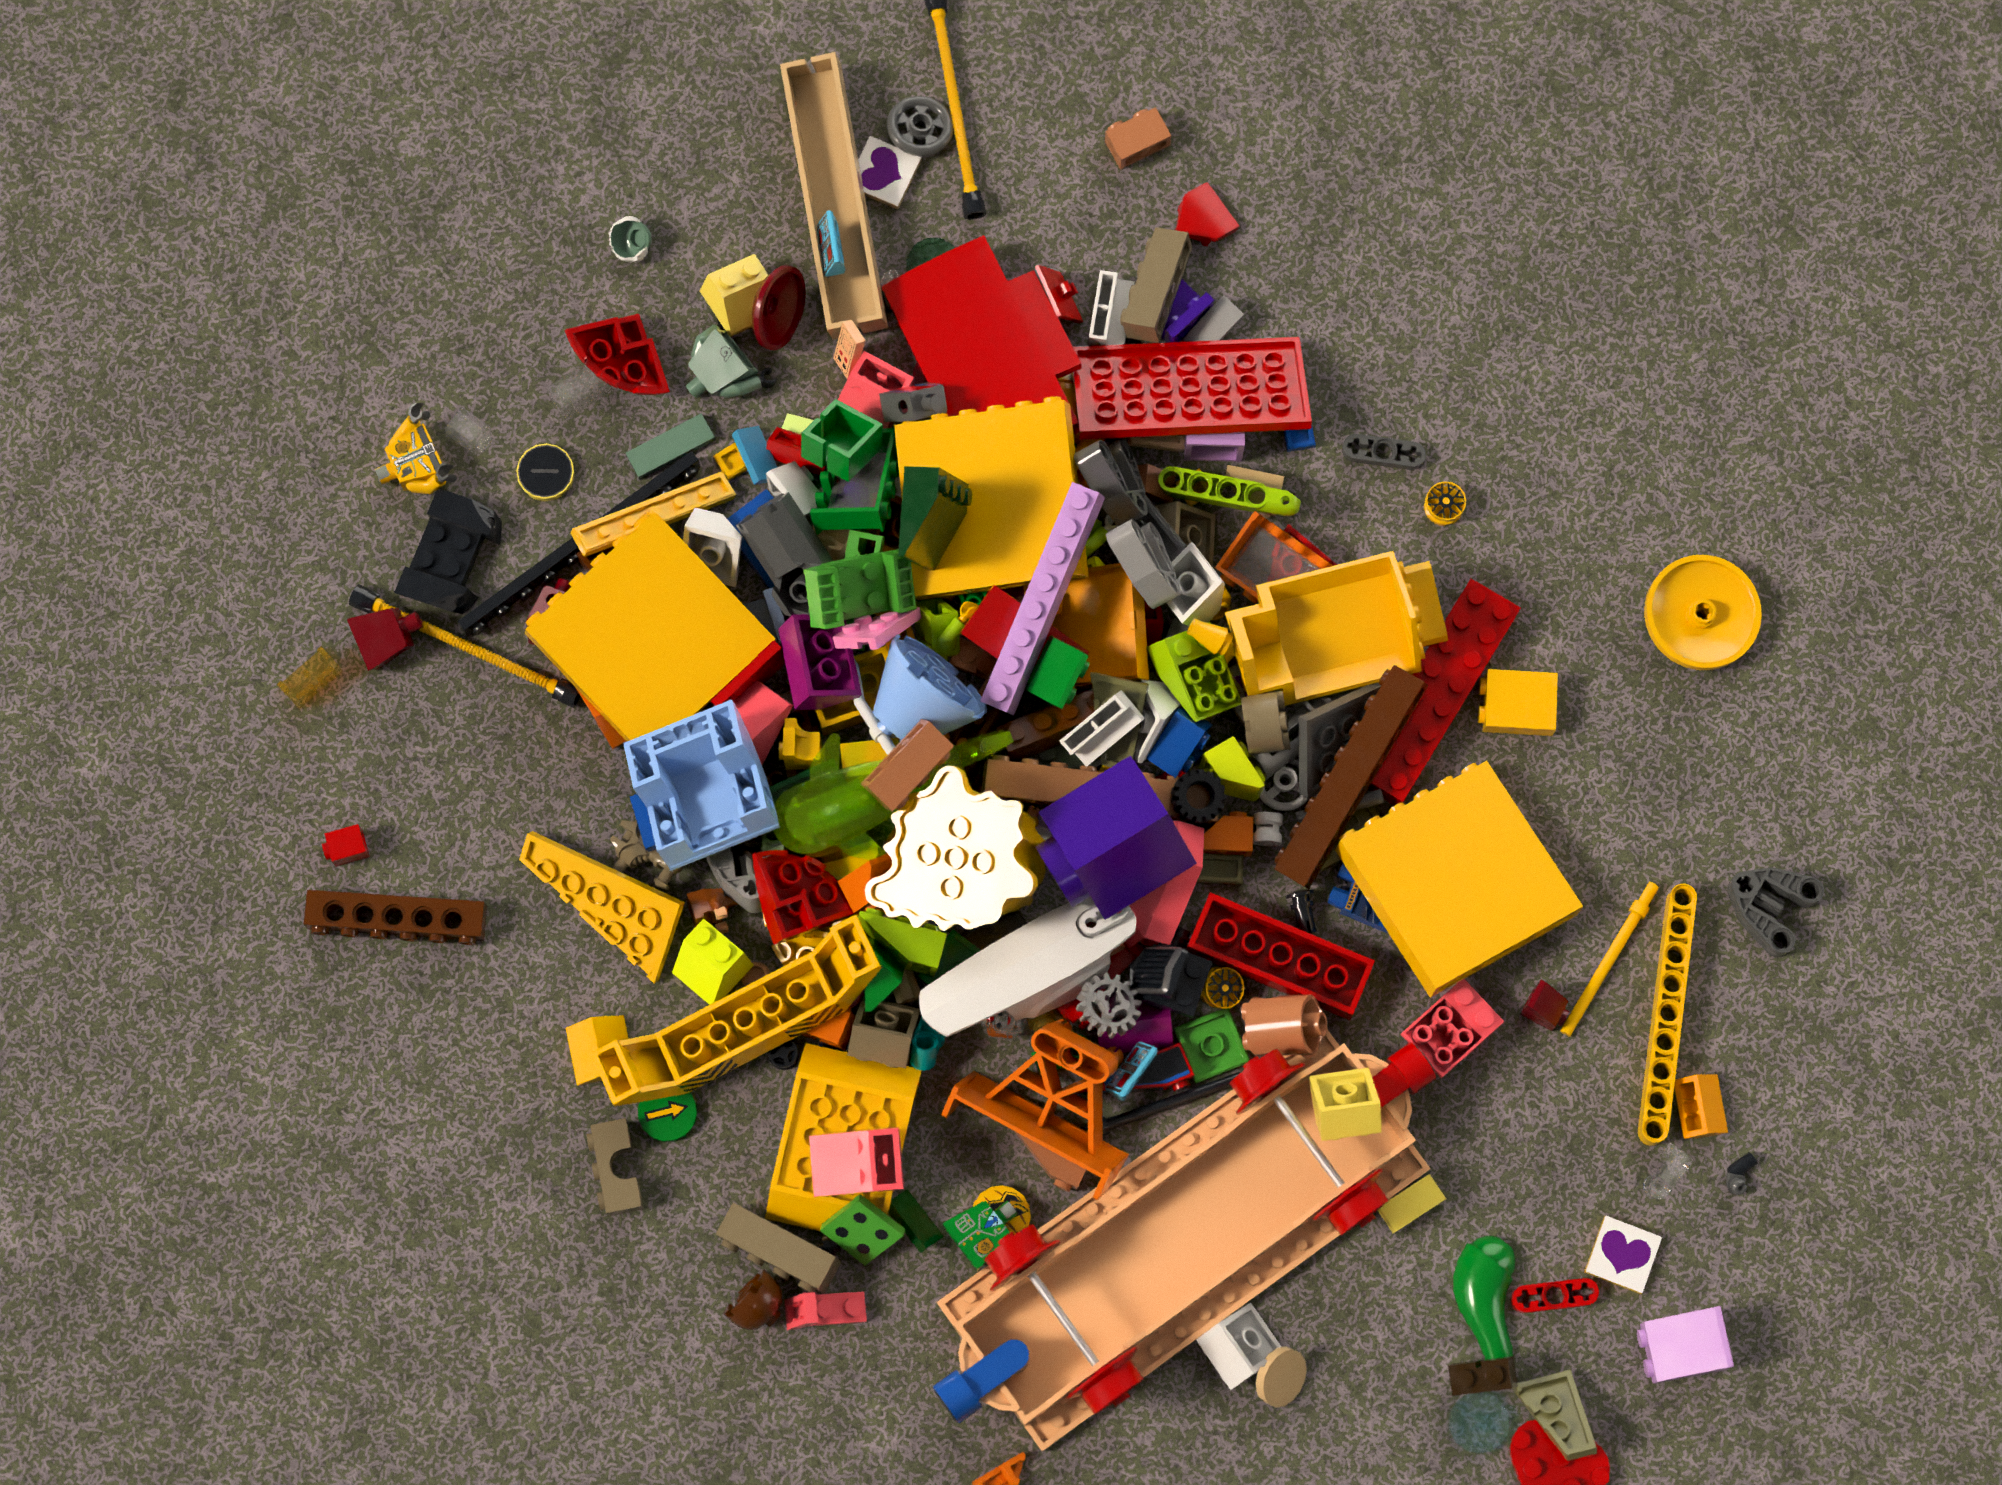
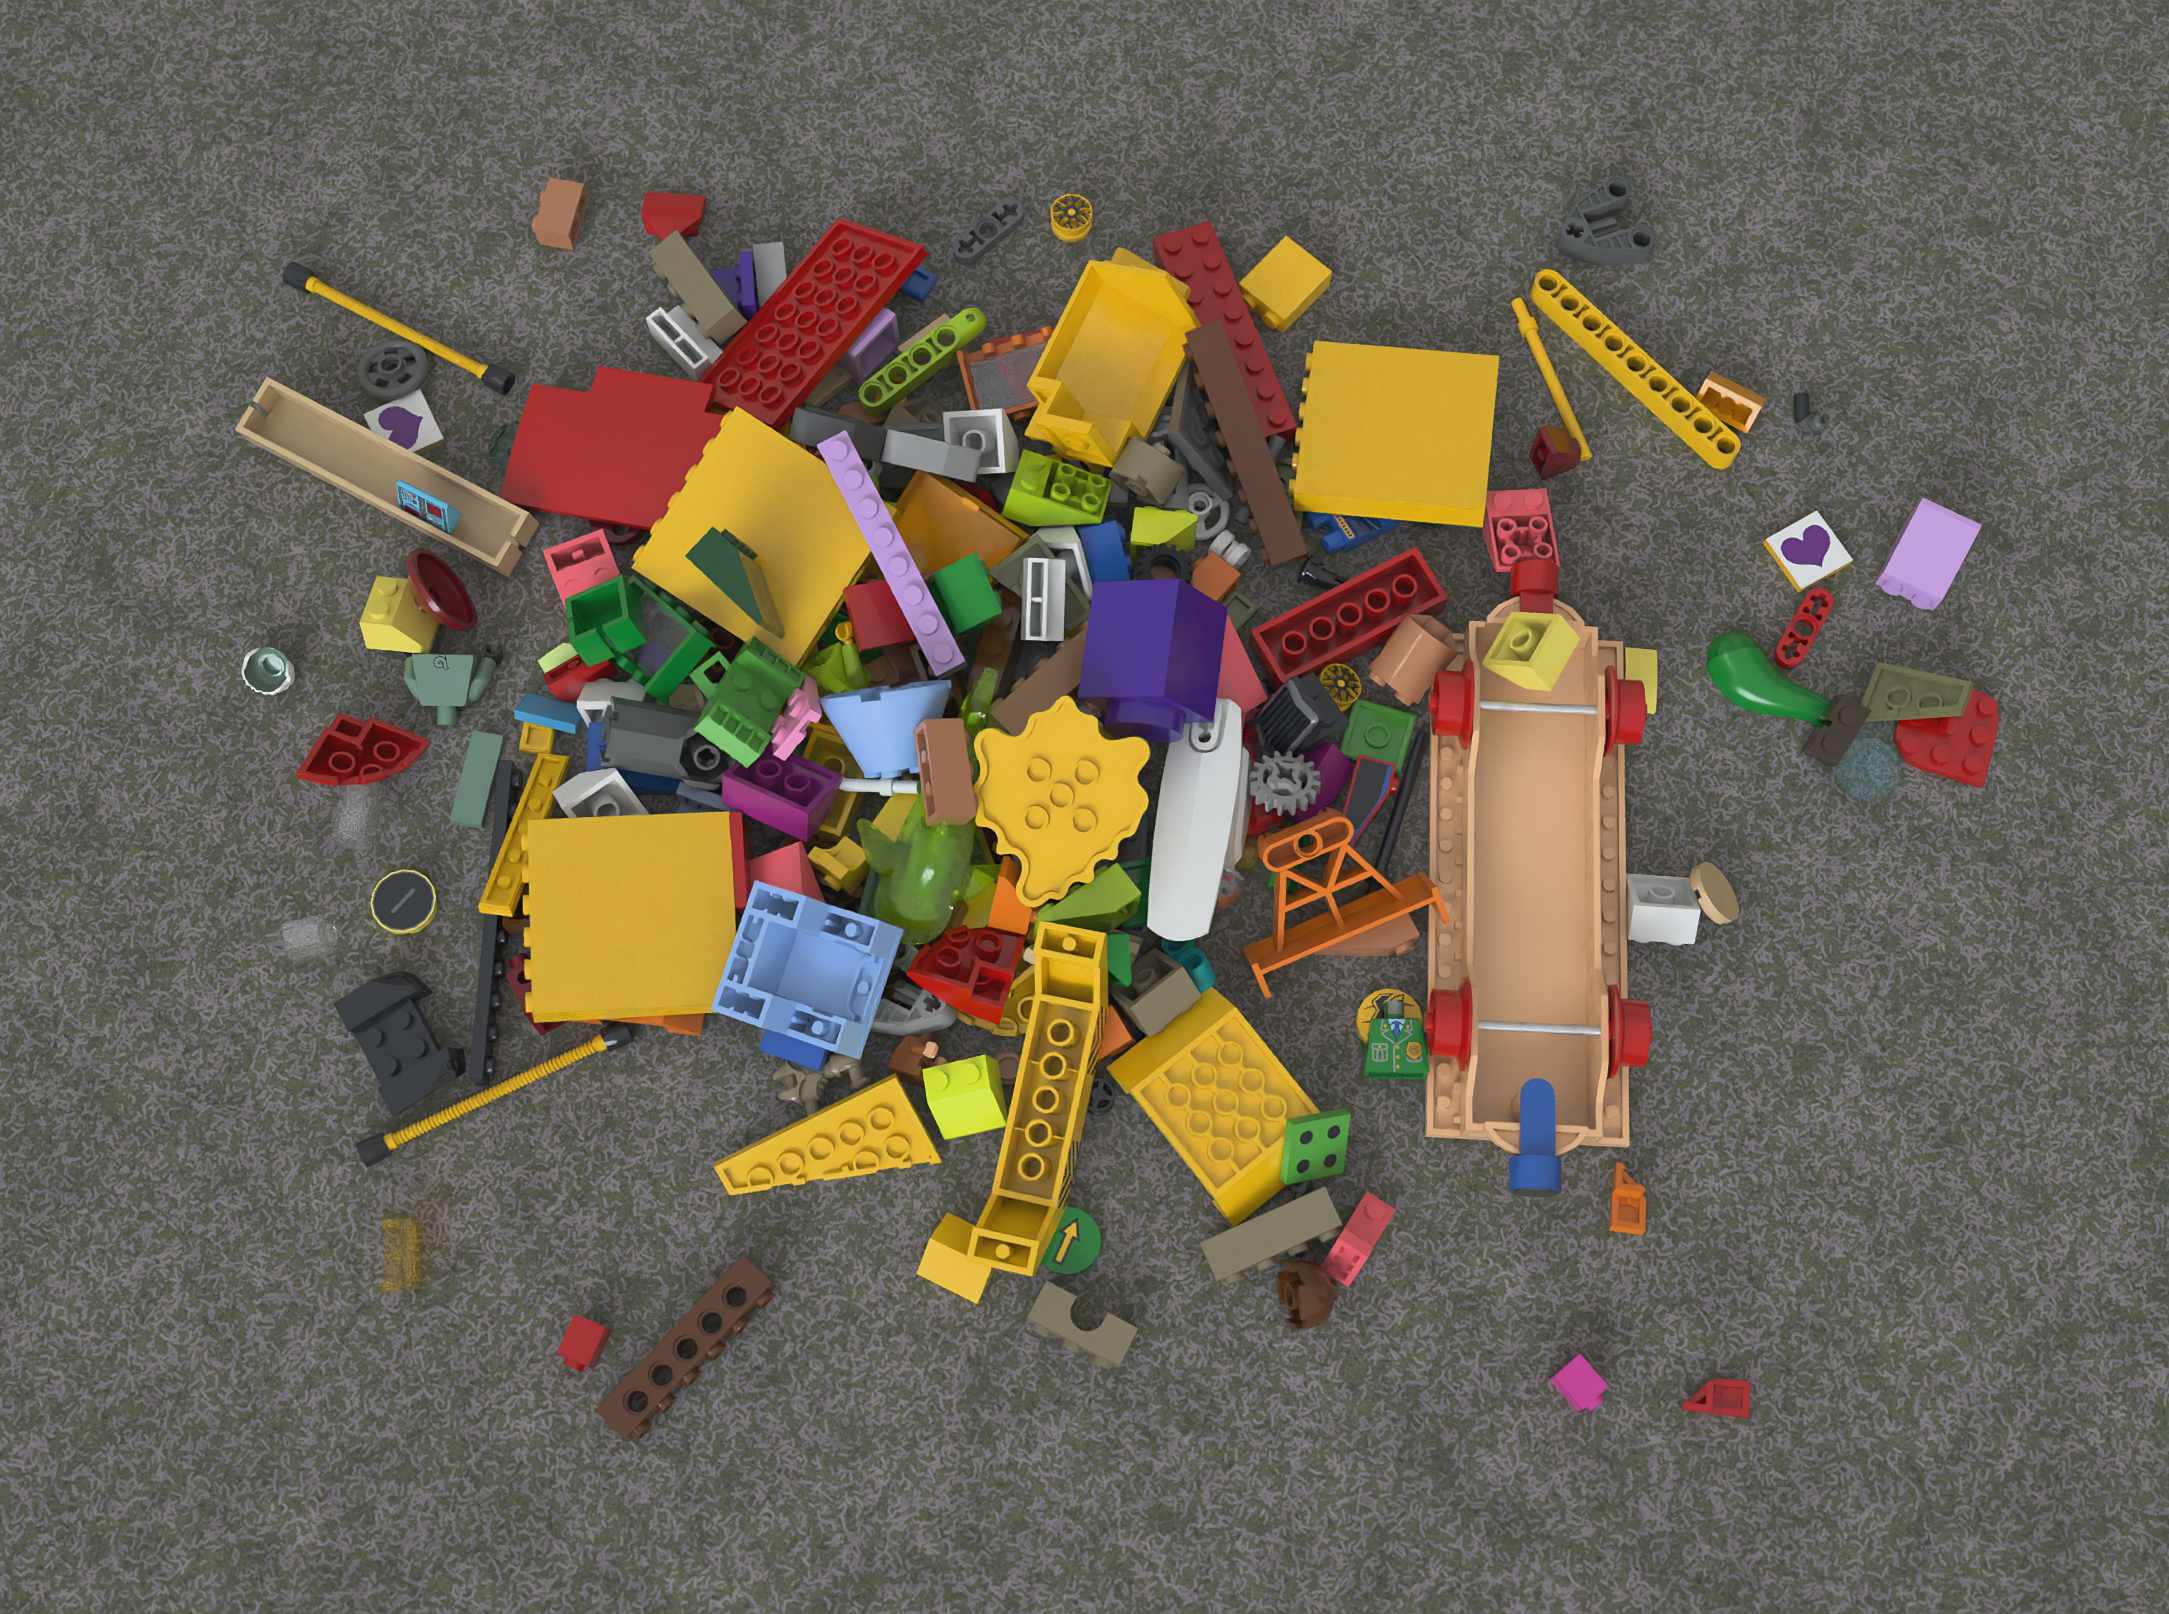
camera: 50 degrees left, 5 degrees down
(383, 635) = (422, 1155): dark red torso -> none
(415, 457) = (288, 1002): torso -> none
(848, 347) = (529, 563): light nougat tile -> none
(856, 1162) = (1257, 1098): coral slope -> none
(915, 1220) = (1352, 1097): dark green tile -> none
(922, 402) = (632, 528): dark grey torso -> none
(1060, 293) = (637, 362): red piece -> none
(1131, 1070) = (1354, 805): slope -> none
(1211, 636) = (1040, 451): yellow cone -> none
(1668, 1175) = (1767, 466): clear leg -> none
(1723, 598) = (1325, 99): yellow dish -> none

